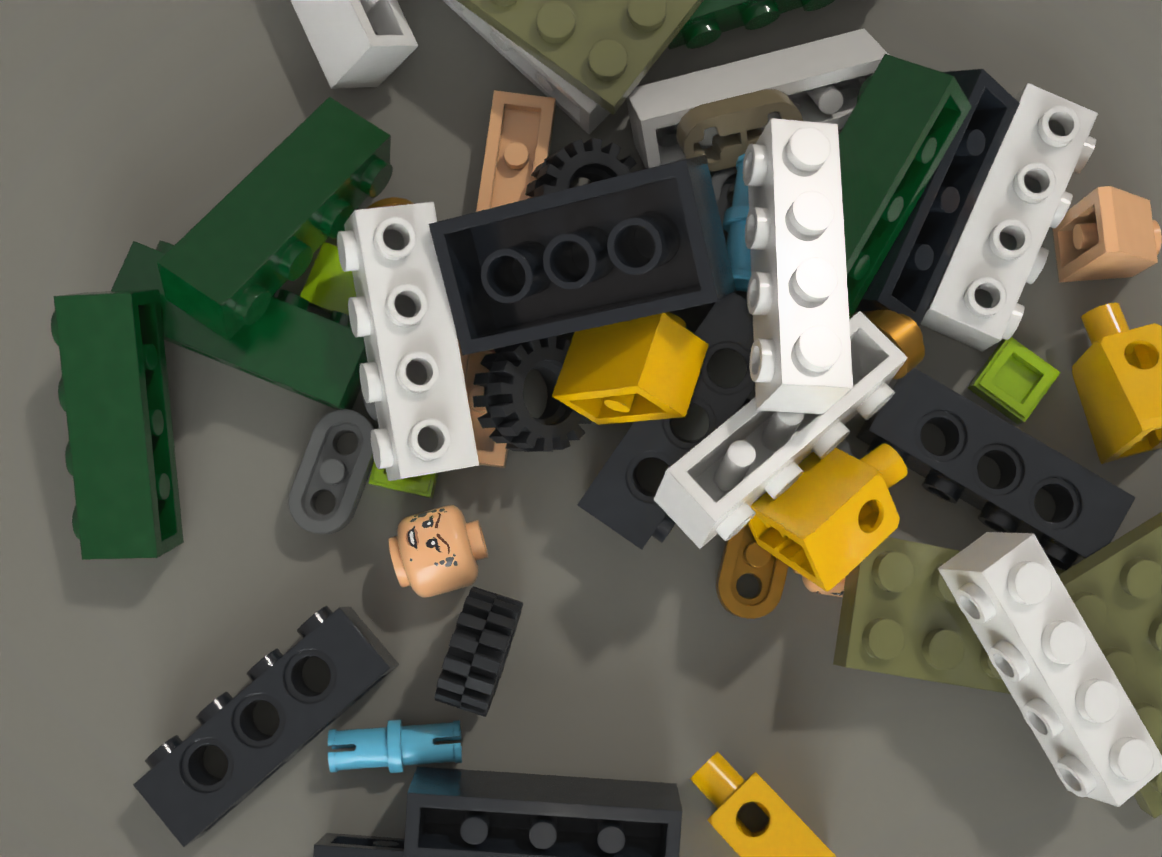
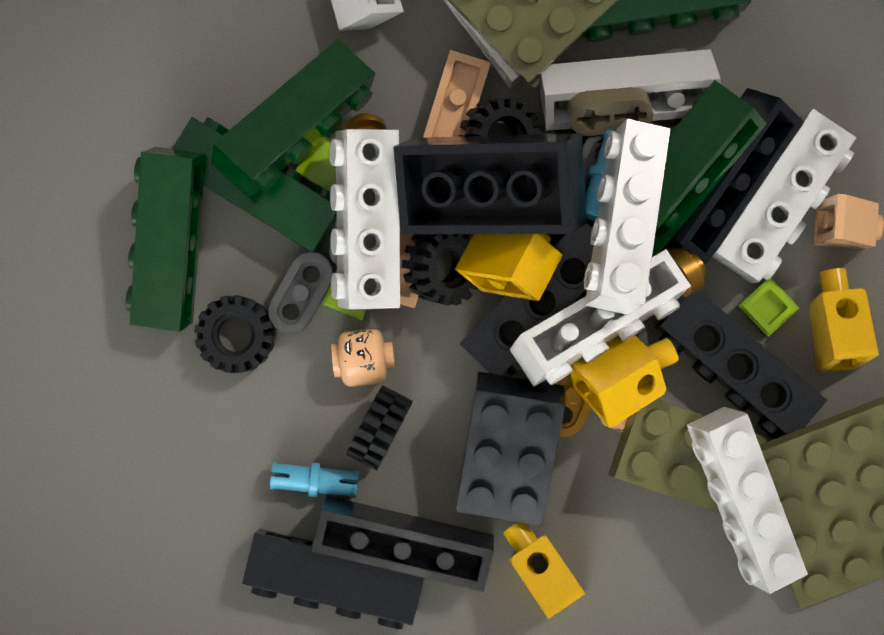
camera: 10 degrees right, 5 degrees up
(193, 799) = (180, 493): black brick -> none
(208, 541) = (211, 346): none -> black tyre
(681, 650) = (510, 448): none -> black brick

